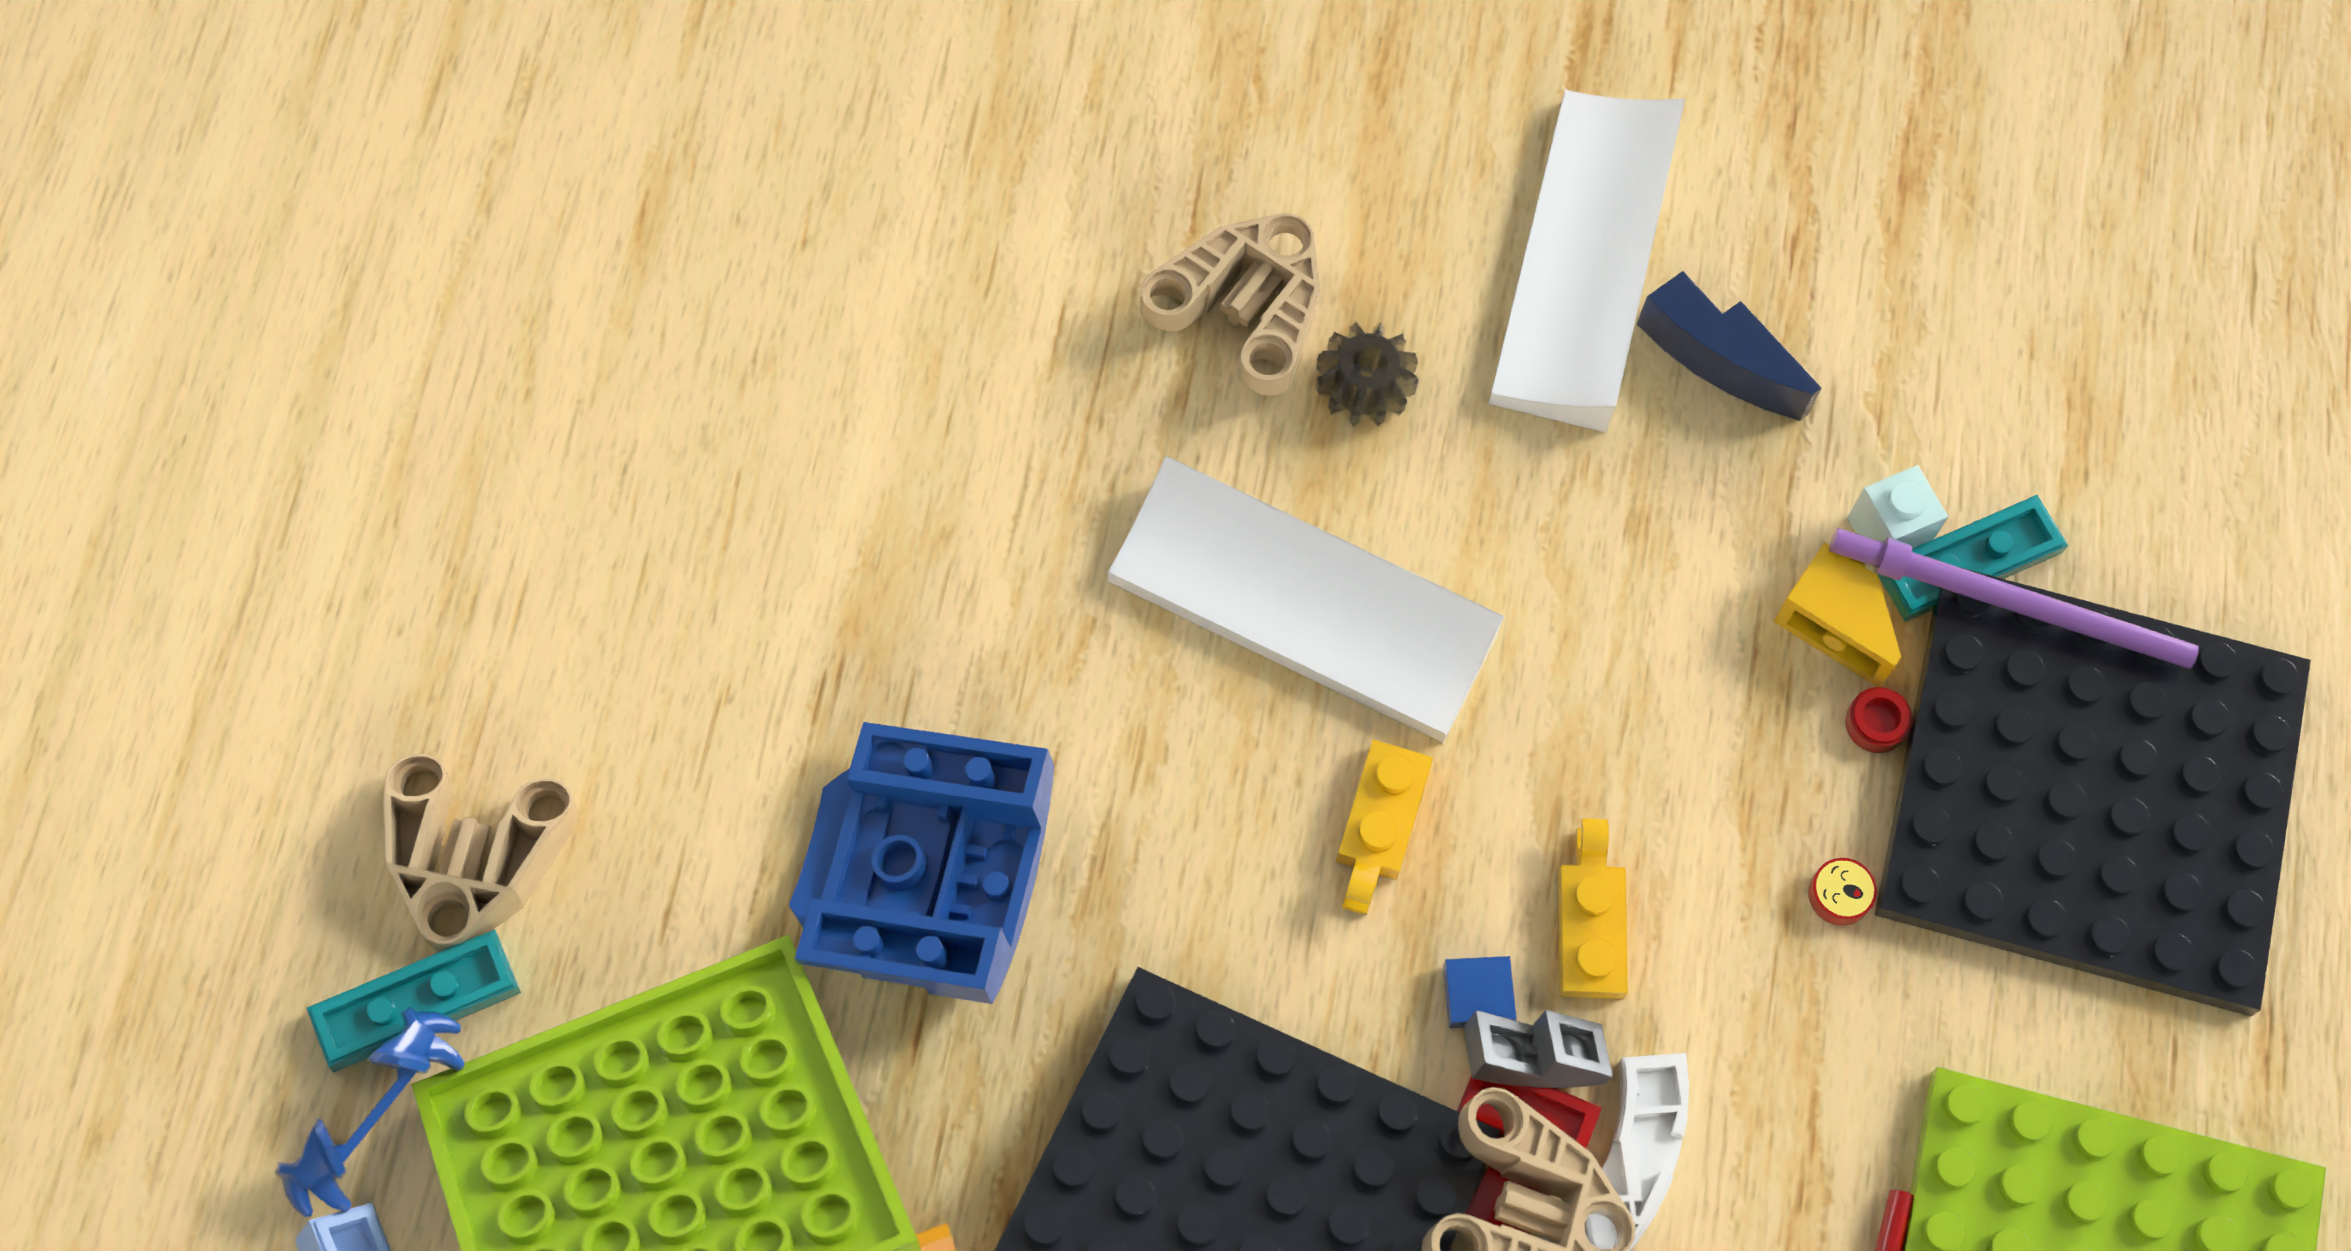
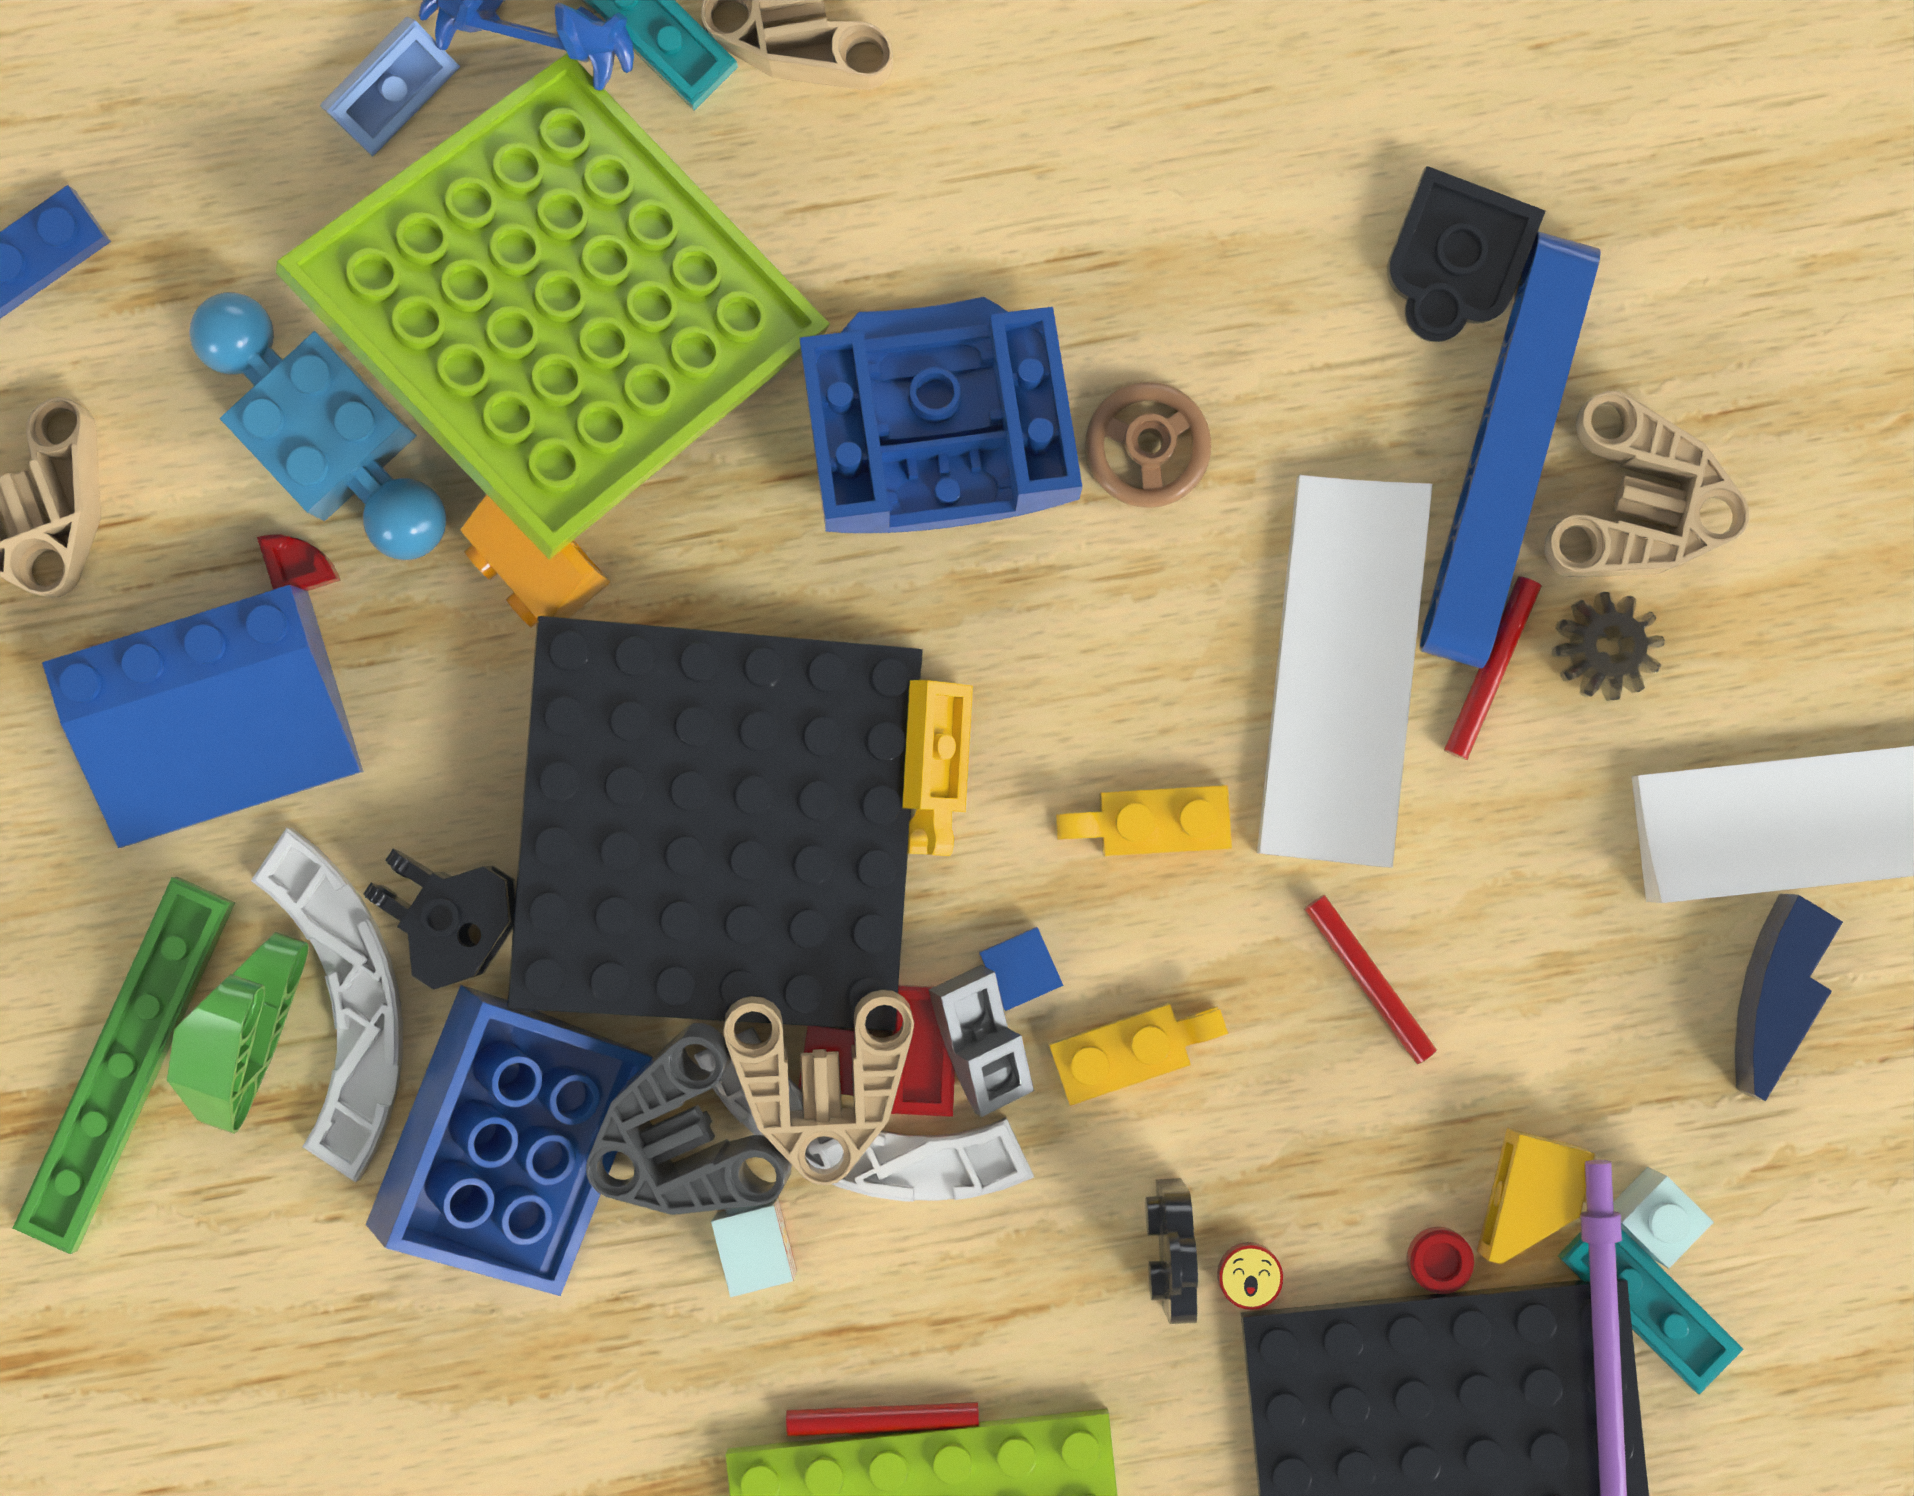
camera: 75 degrees right, 20 degrees up
(963, 368) = (1459, 254): none -> black plate
(1025, 671) = (1105, 425): none -> medium nougat piece
(1158, 388) = (1509, 450): none -> blue beam
(1253, 993) = (936, 762): none -> yellow plate
(1349, 478) = (1490, 676): none -> red bar
(1597, 684) = (1370, 979): none -> red bar
(1802, 934) = (1176, 1274): none -> black plate

